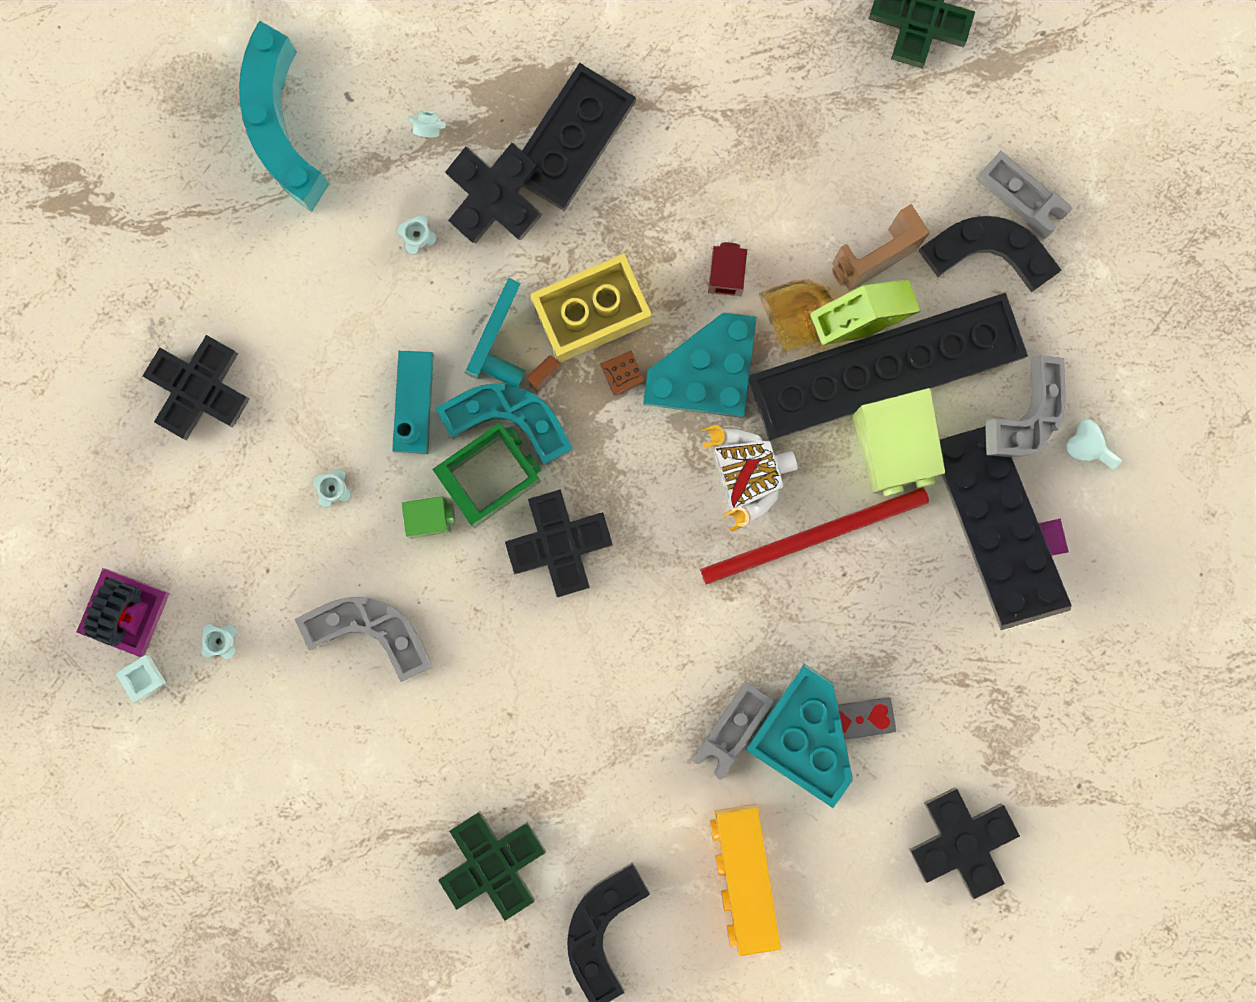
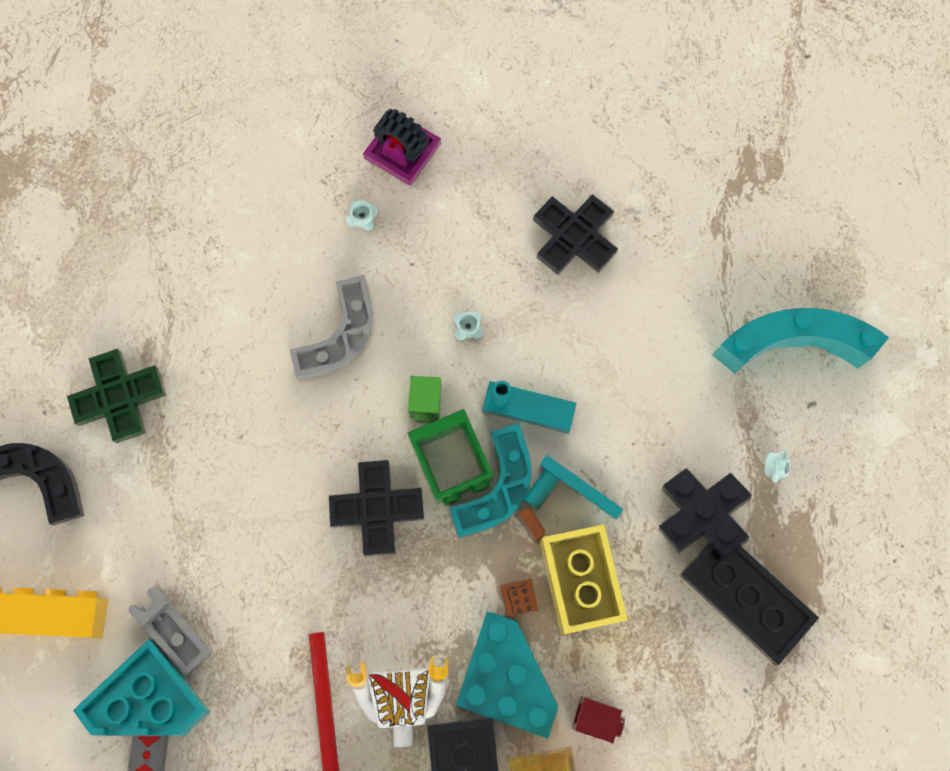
camera: 95 degrees right, 10 degrees down
(141, 678) = (346, 152): light aqua plate -> none
(407, 231) = (681, 430): light aqua plate -> none

